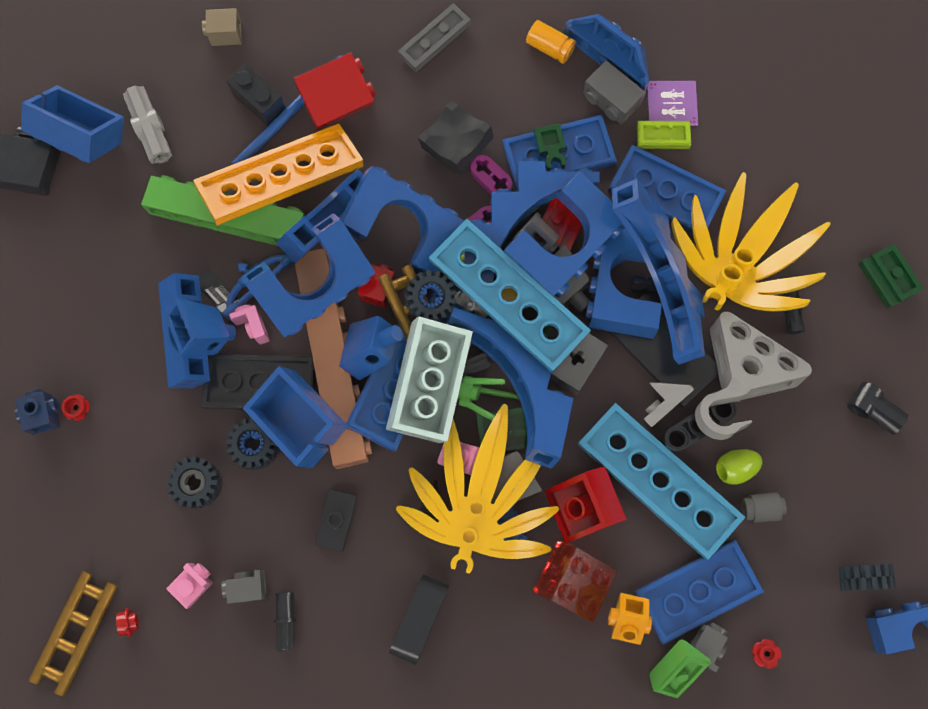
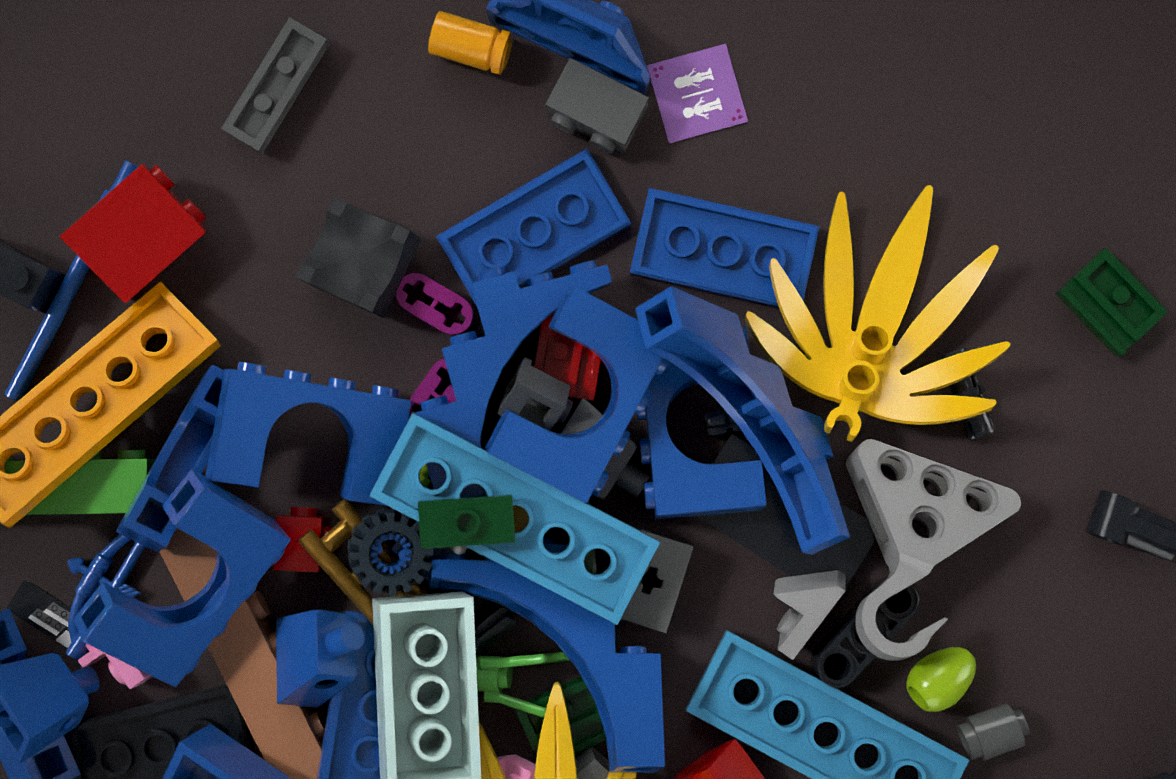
camera: 15 degrees left, 10 degrees up
(481, 285) = (466, 521): none -> dark green plate
(550, 143) = (515, 227): dark green plate -> none
(663, 135) = (696, 157): lime plate -> none

